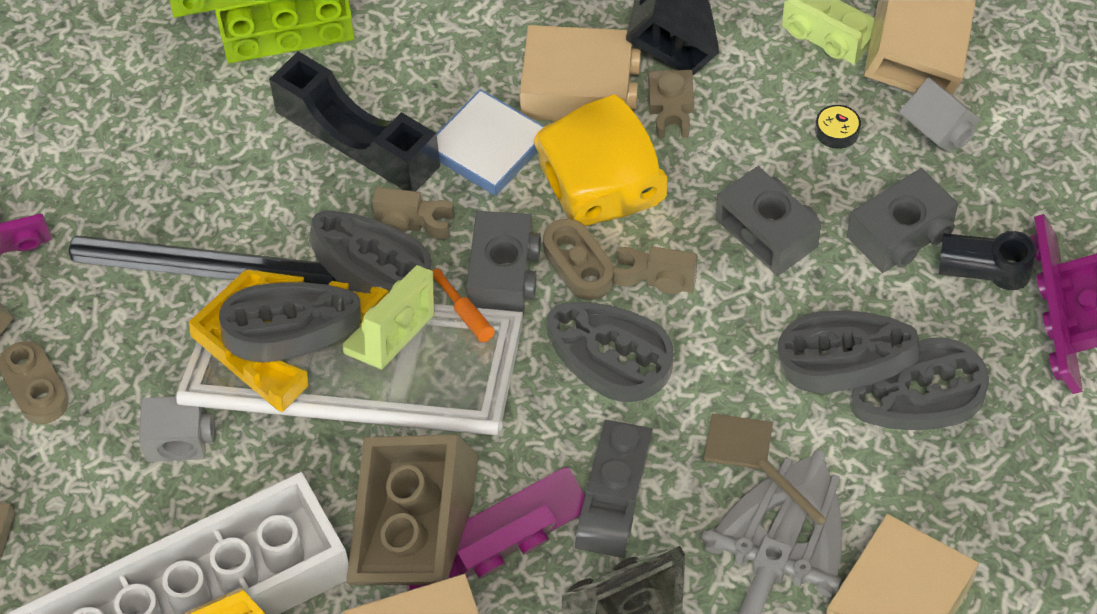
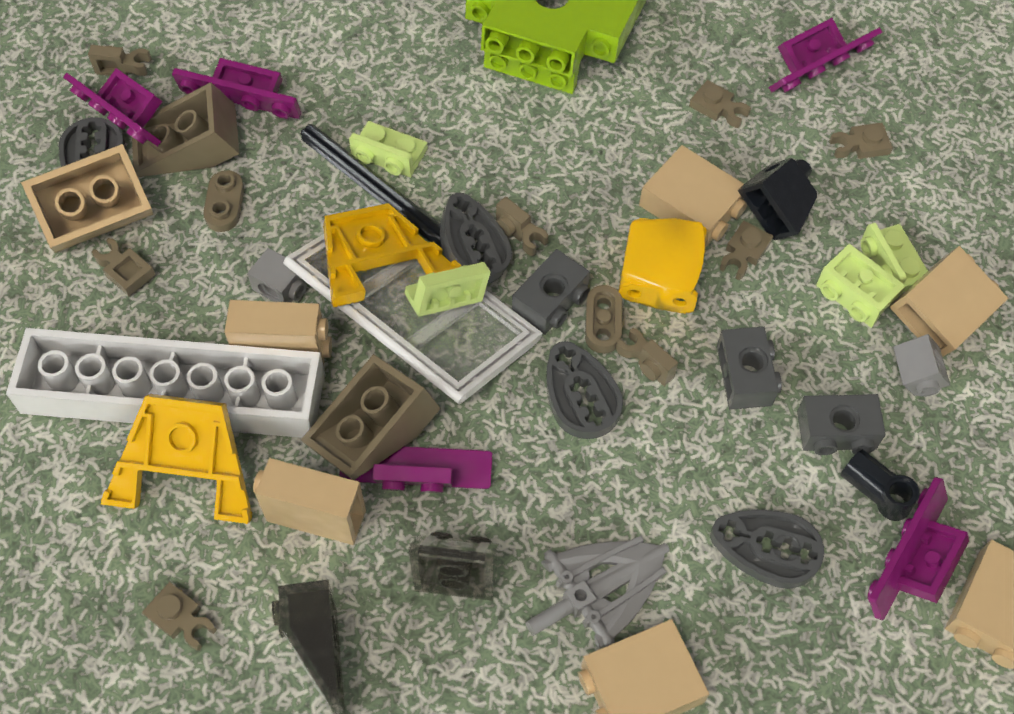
camera: 30 degrees right, 5 degrees up
(189, 214) = (388, 149): none -> yellowish green bracket
(229, 471) = (278, 326): none -> tan brick
(300, 318) = (369, 260): dark grey piece -> none
(315, 101) = (535, 173): black arch -> none
(465, 309) = (505, 309): orange piece -> none
(487, 142) = (603, 207): white tile -> none
(613, 489) = (512, 484): dark grey plate -> none
(747, 444) = (619, 509): dark tan piece -> none
(818, 70) = (859, 285): none -> yellowish green bracket
(837, 126) = (846, 331): tile -> none
(871, 356) = (744, 504): dark grey piece -> none

